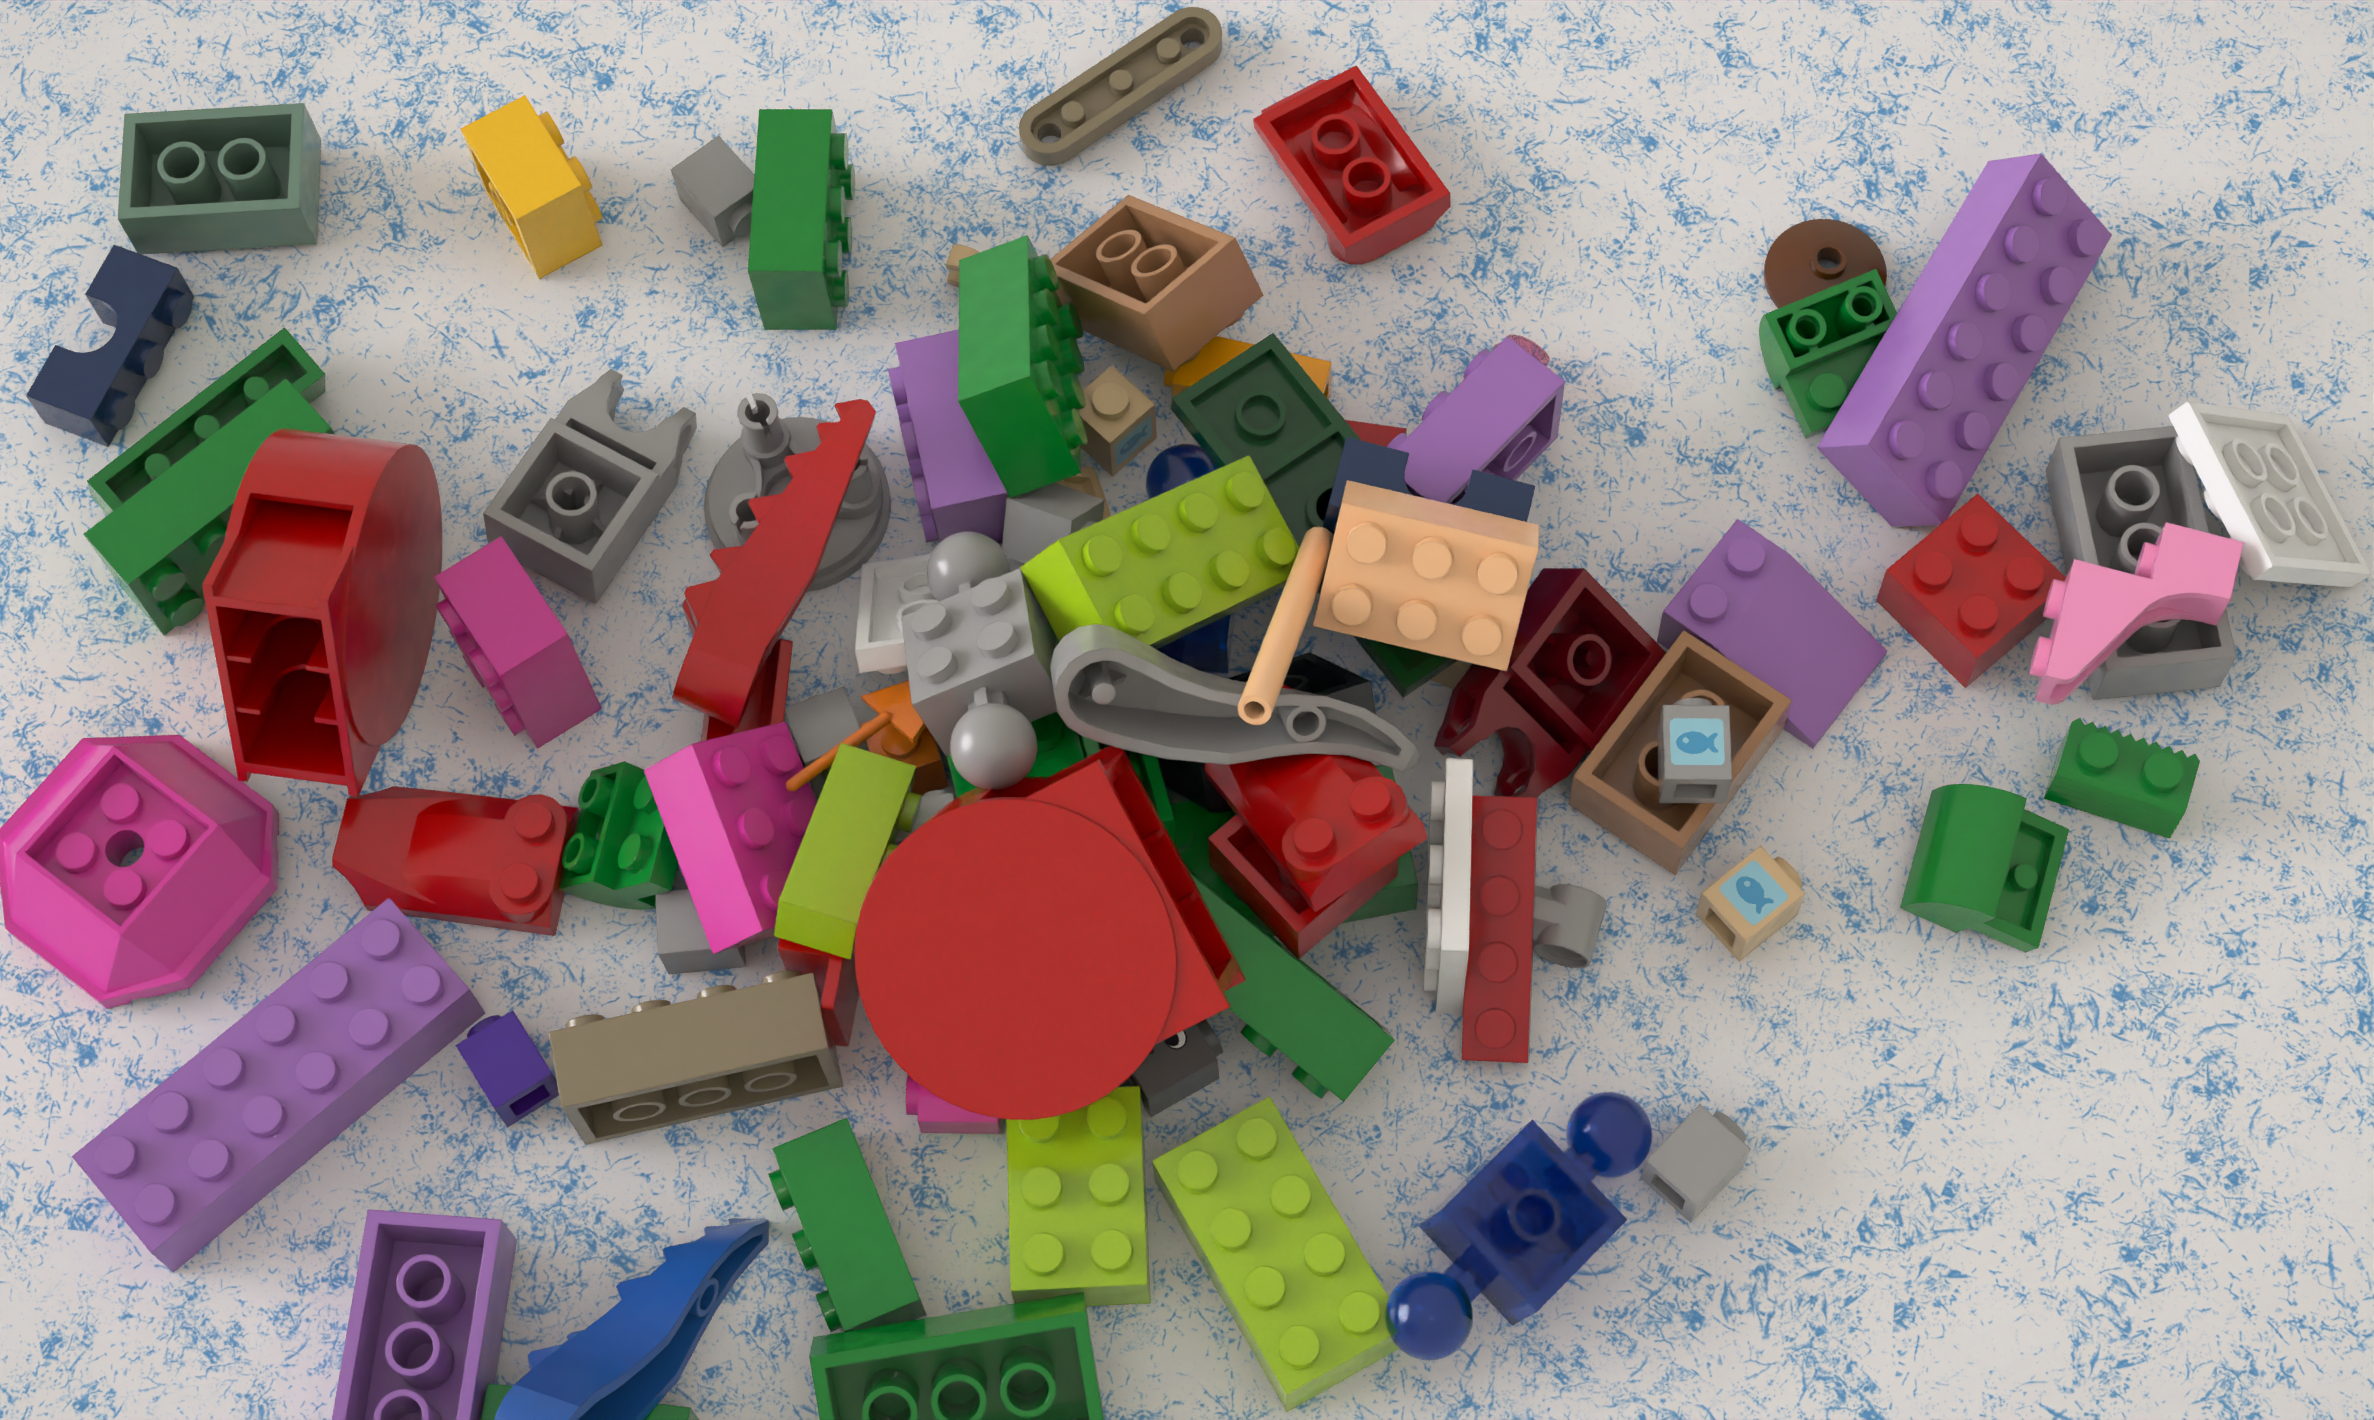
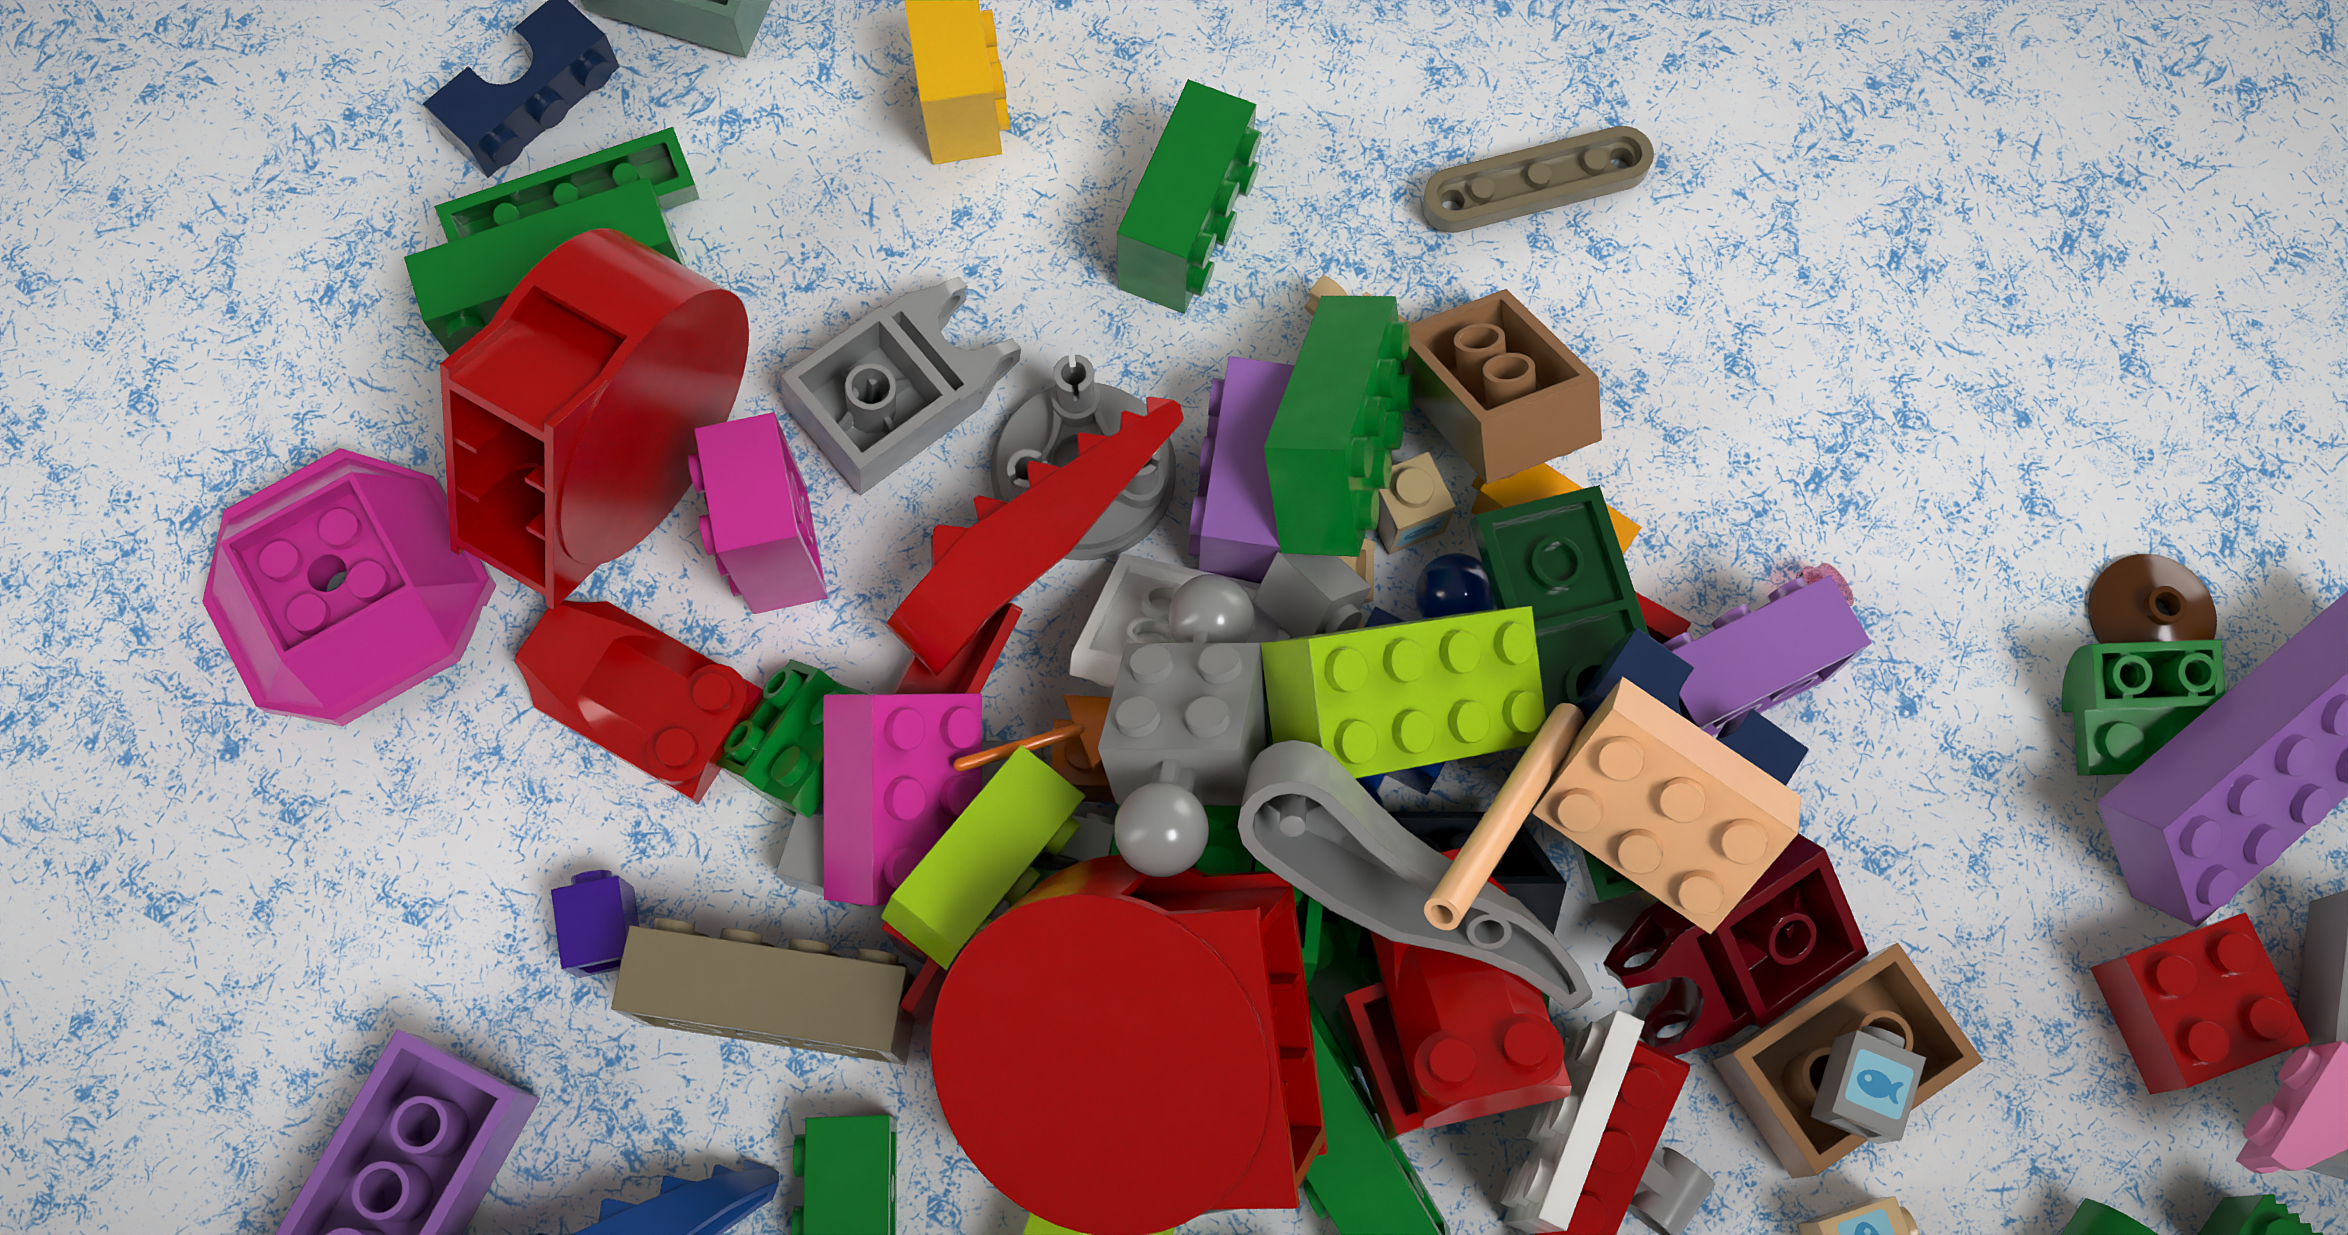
camera: 15 degrees right, 5 degrees up
(279, 1085) = (376, 859): medium lavender brick -> none
(717, 190) = (1123, 140): light grey brick -> none
(821, 725) = (1020, 707): light grey brick -> none
(1353, 166) = (1731, 338): red slope -> none
(1777, 625) = (1985, 961): medium lavender slope -> none

